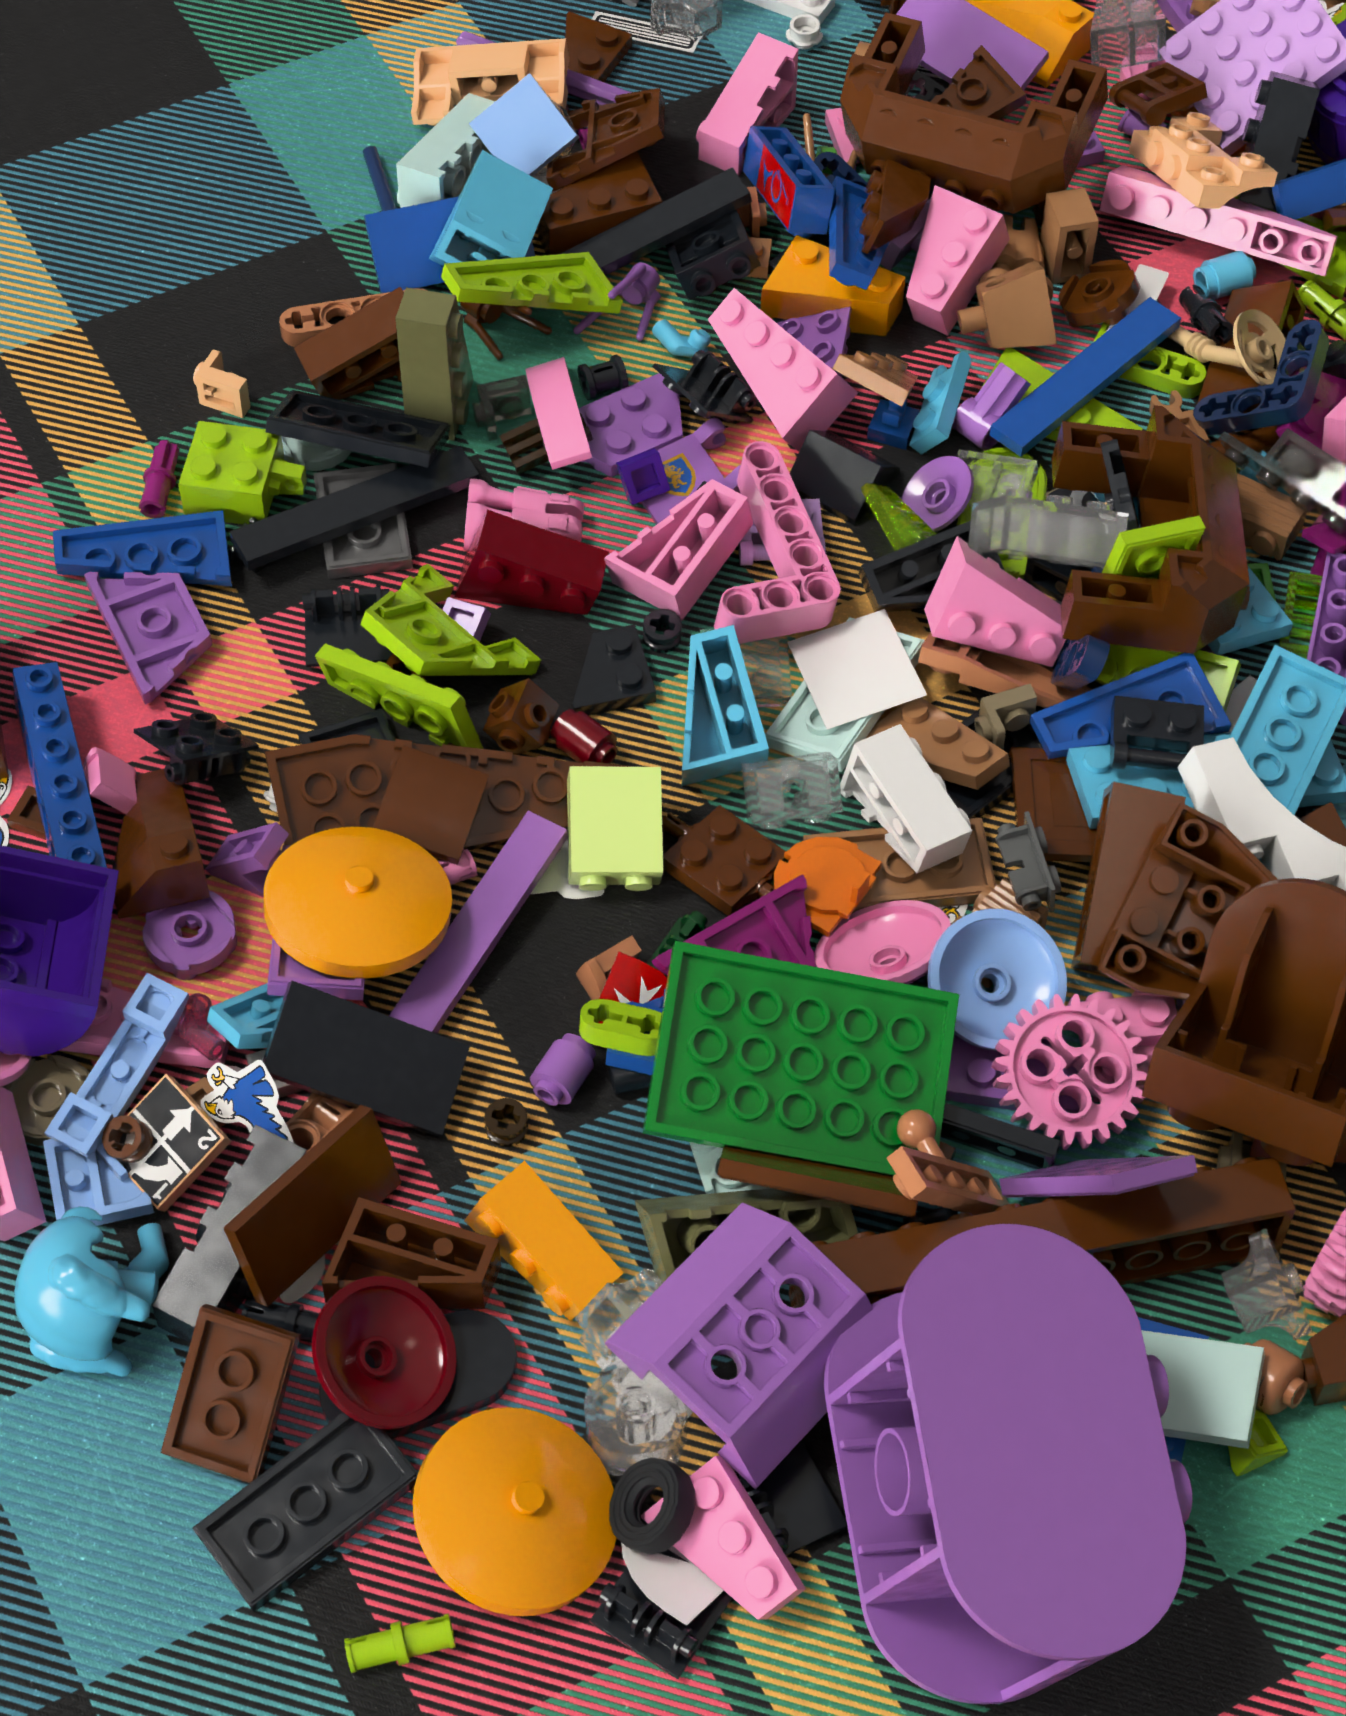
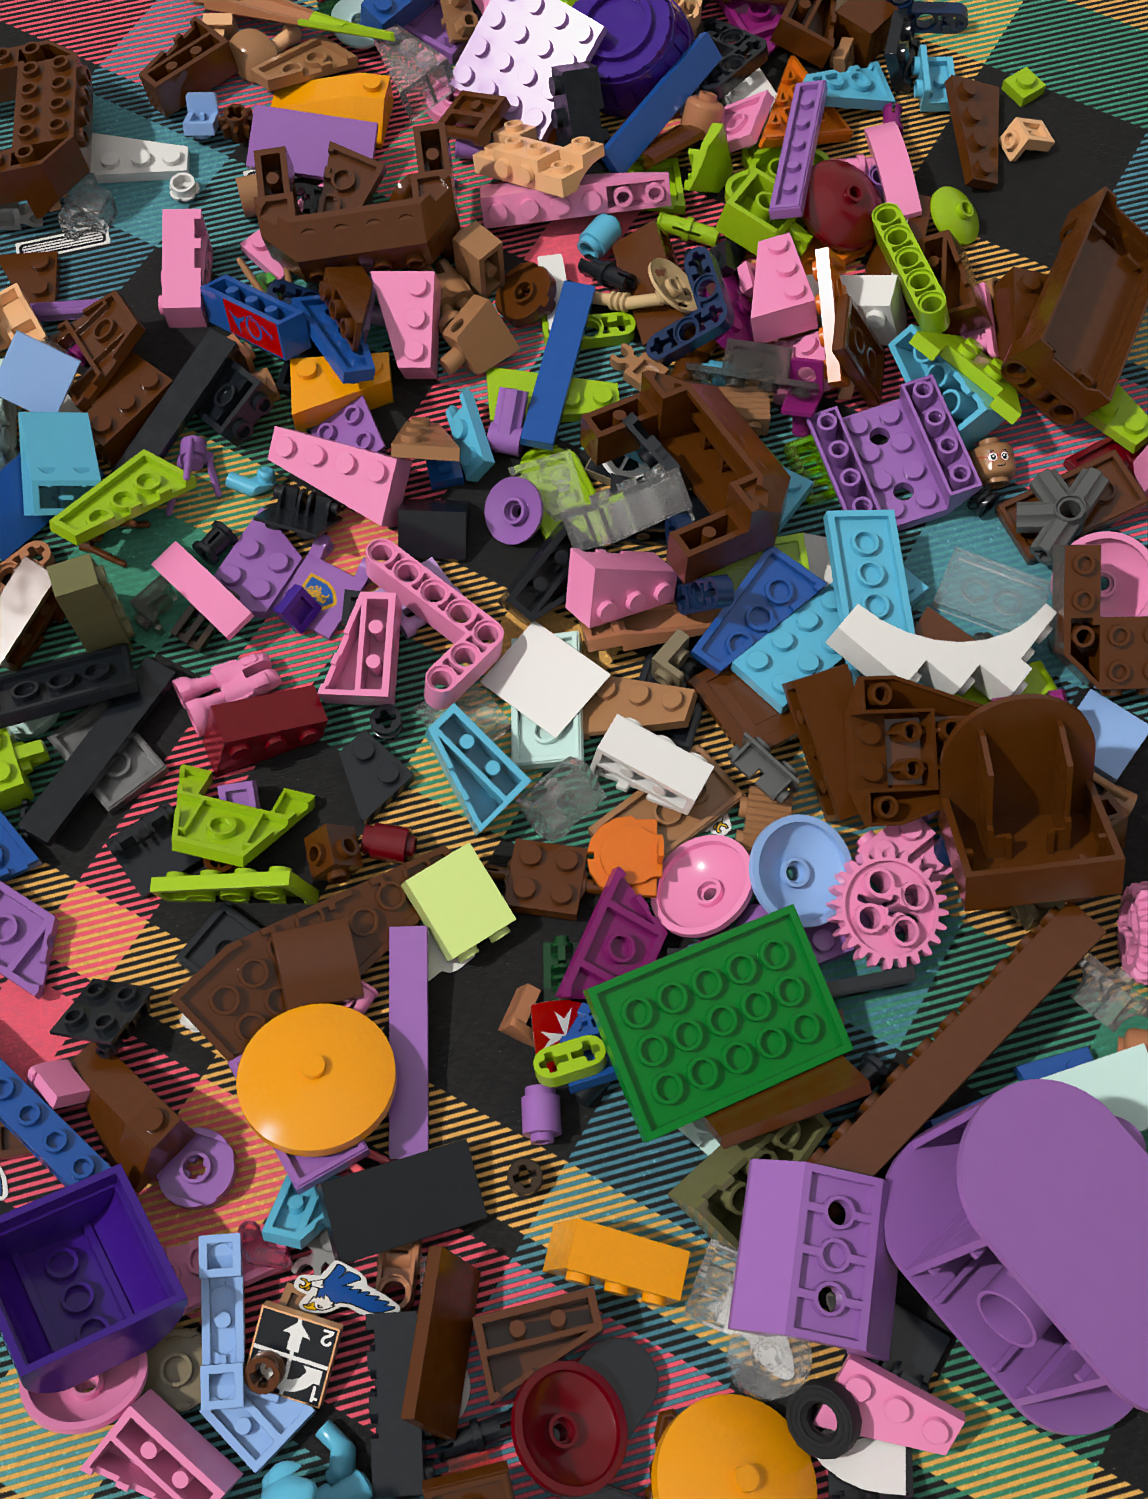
camera: 30 degrees left, 10 degrees up
(248, 856) = (204, 1082): medium lavender slope -> none
(896, 518) = (504, 547): clear neon green slope -> none
(932, 1177) = (872, 1047): nougat plate -> none
(1099, 1176) = (970, 986): medium lavender tile -> none
(1143, 549) = (714, 490): lime tile -> none
(1154, 726) = (785, 613): black plate -> none

